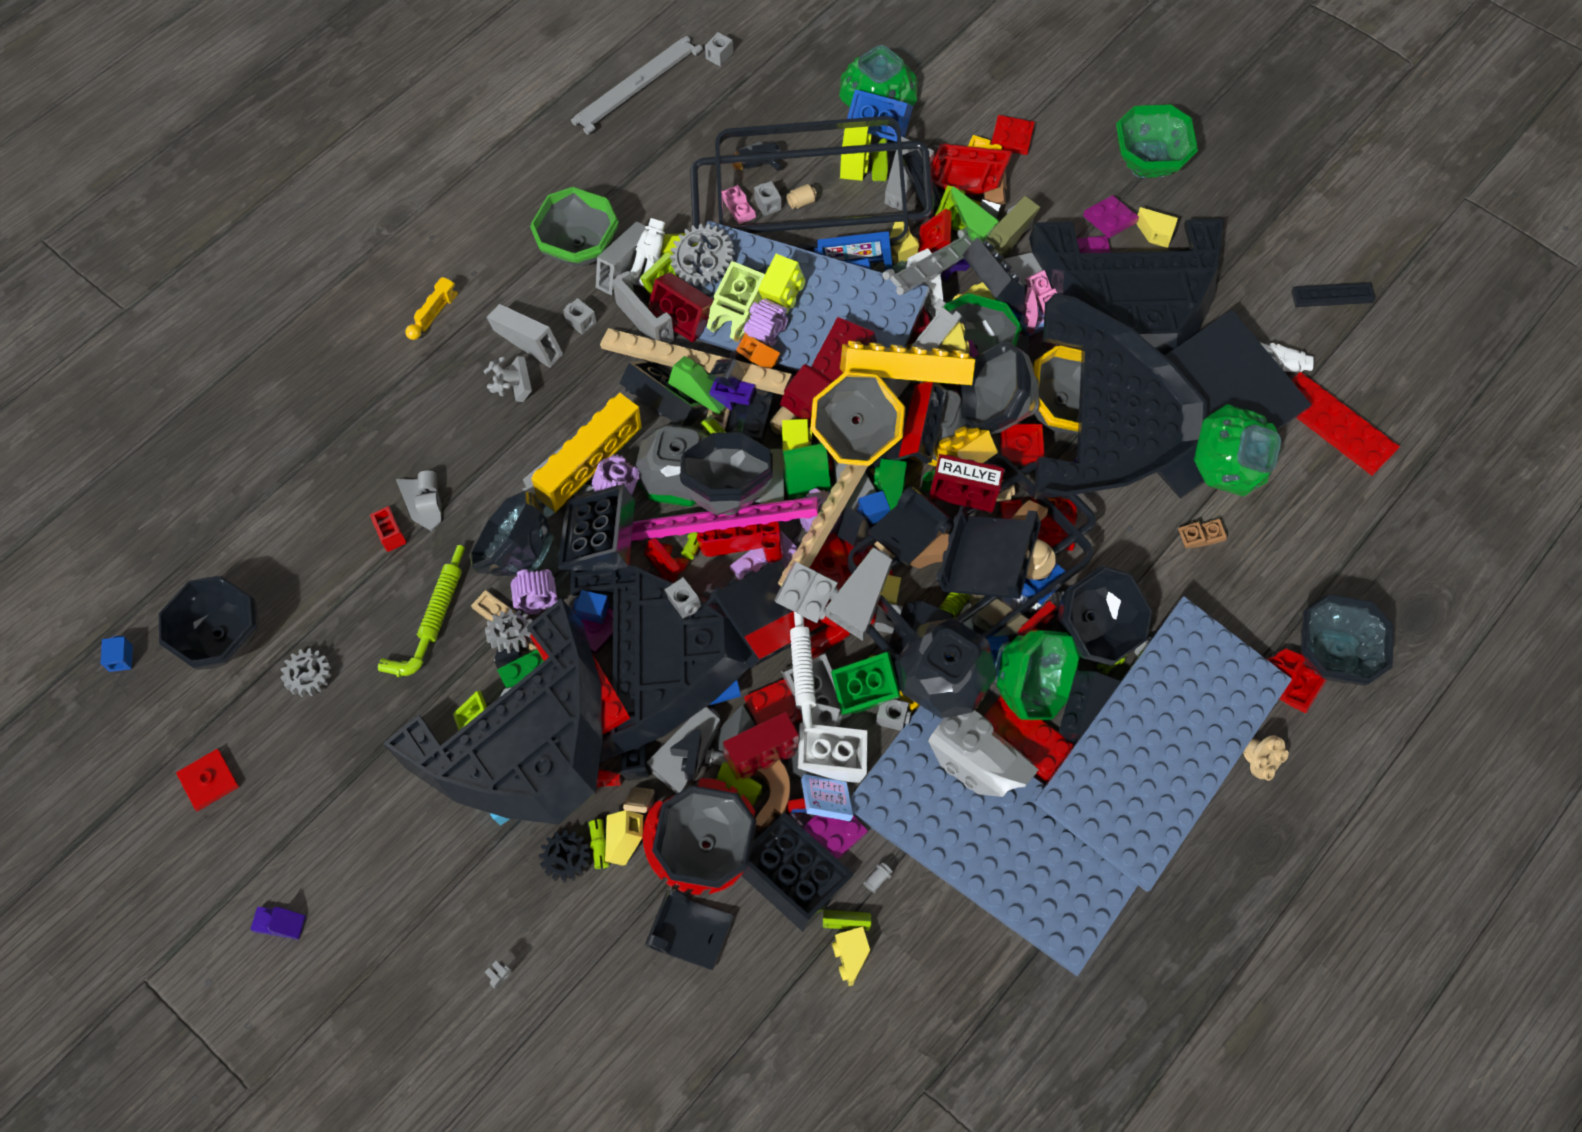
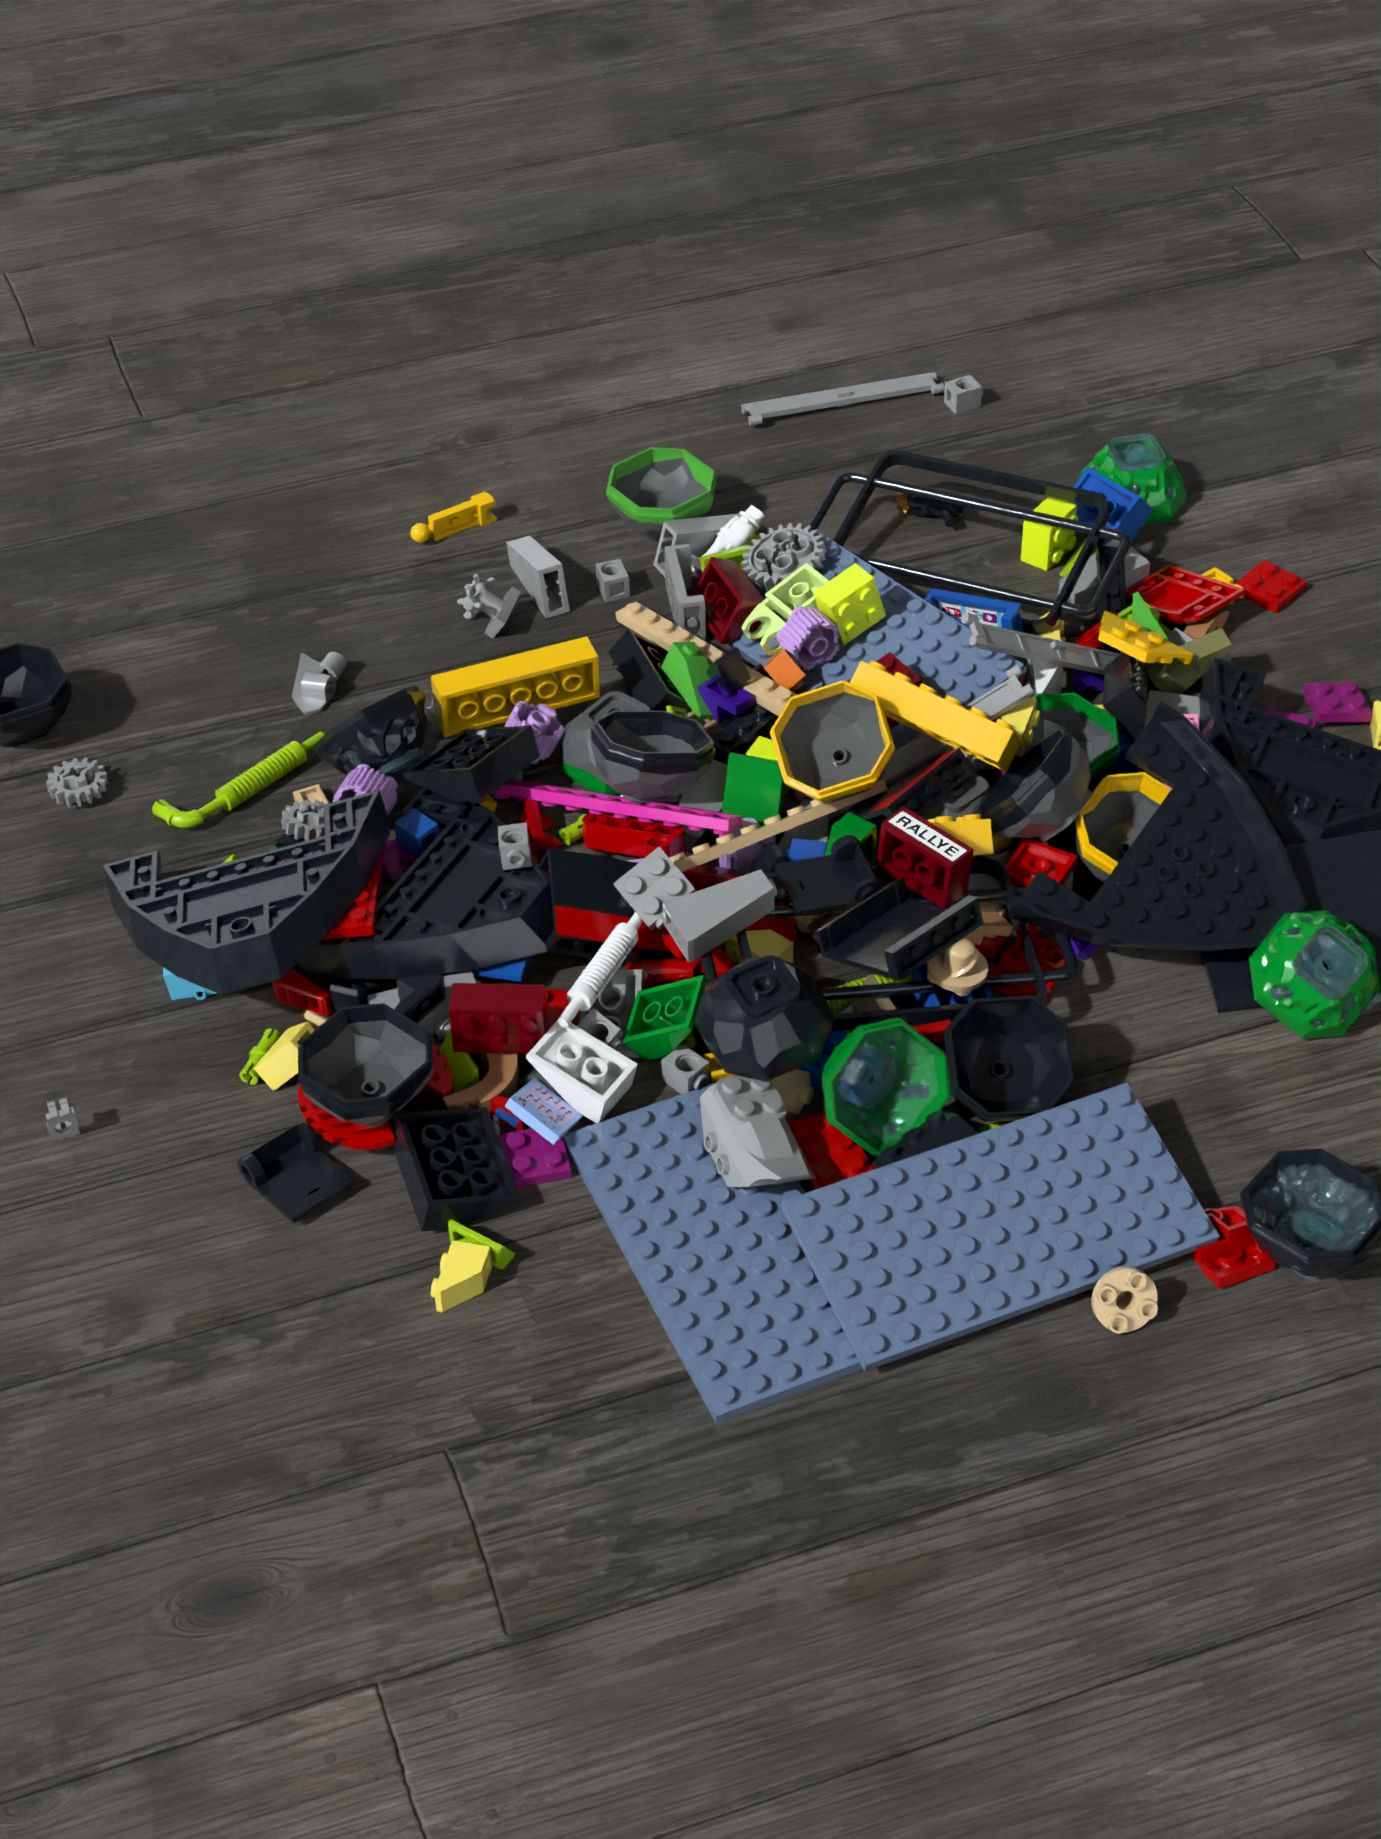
camera: 30 degrees right, 20 degrees down
(392, 539) = (259, 695): red slope -> none
(556, 858) = (215, 1049): black gear -> none
(738, 205) = (876, 540): bright pink slope -> none
(767, 198) = (914, 546): light grey brick -> none
(801, 196) = (956, 557): tan brick -> none
(878, 877) = (548, 1219): light grey pin -> none
(980, 231) = (1138, 642): none -> yellow wing
(1202, 535) = (1209, 1054): medium nougat slope -> none

